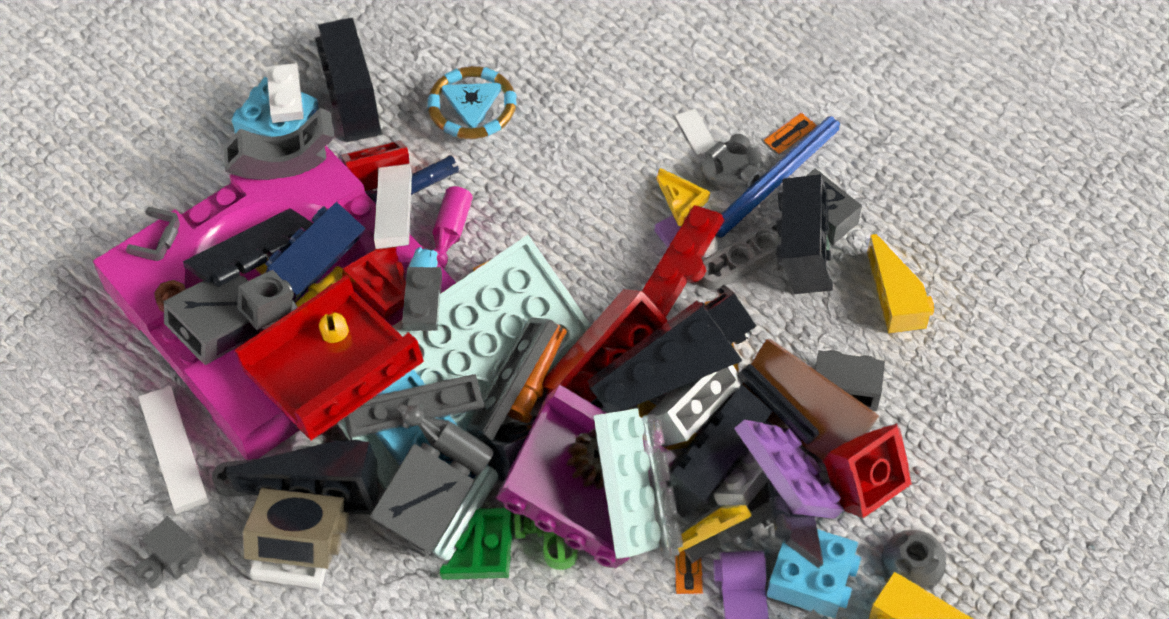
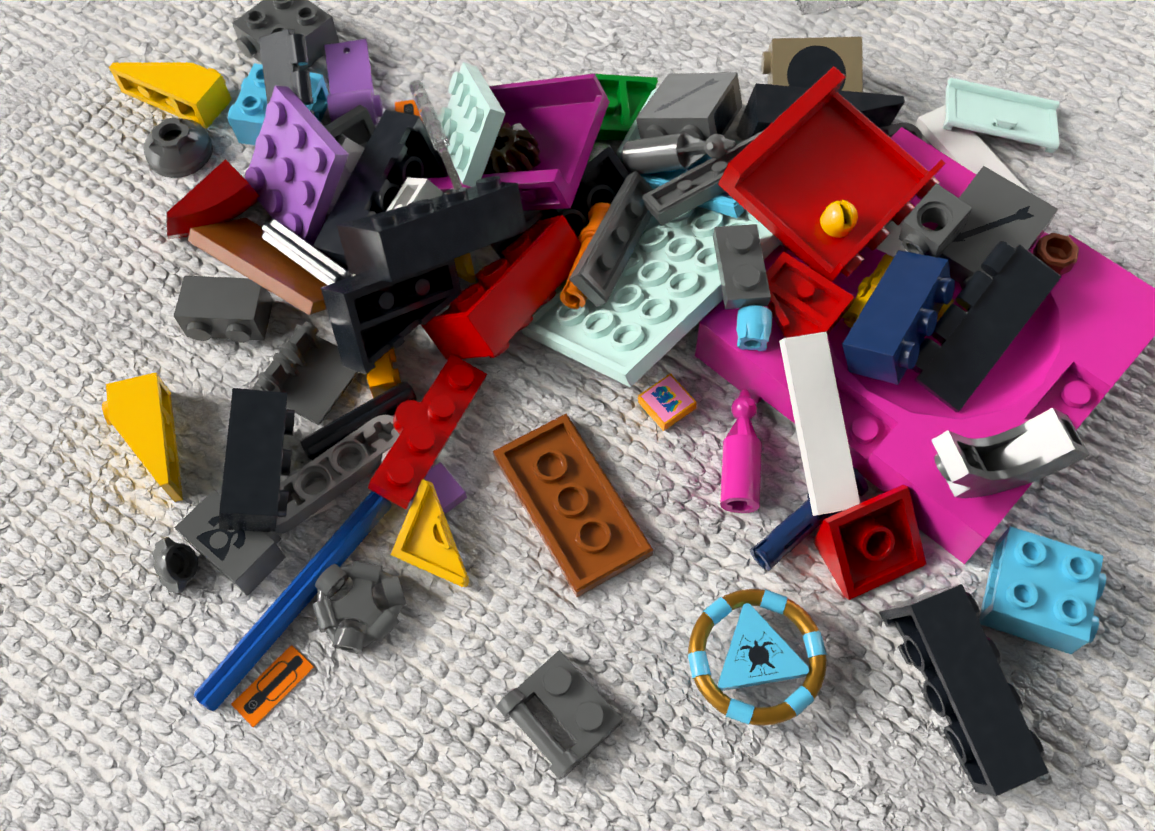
camera: 175 degrees right, 5 degrees up
(120, 488) = (1002, 113): none -> light aqua door
(166, 239) = (1101, 340): dark grey piece -> none
(170, 550) = (931, 64): dark grey brick -> none
(284, 93) = (1043, 595): white plate -> none
(578, 217) = (572, 505): none -> dark orange tile
(596, 103) = (571, 702): none -> dark grey plate
(695, 131) = (415, 672): white sticker -> none
(713, 524) = (364, 113): yellow tile -> none
(740, 283) = (337, 430): none -> black axle
(781, 321) = (309, 374): none -> dark grey hinge
(866, 198) = (174, 564): none -> dark grey piece

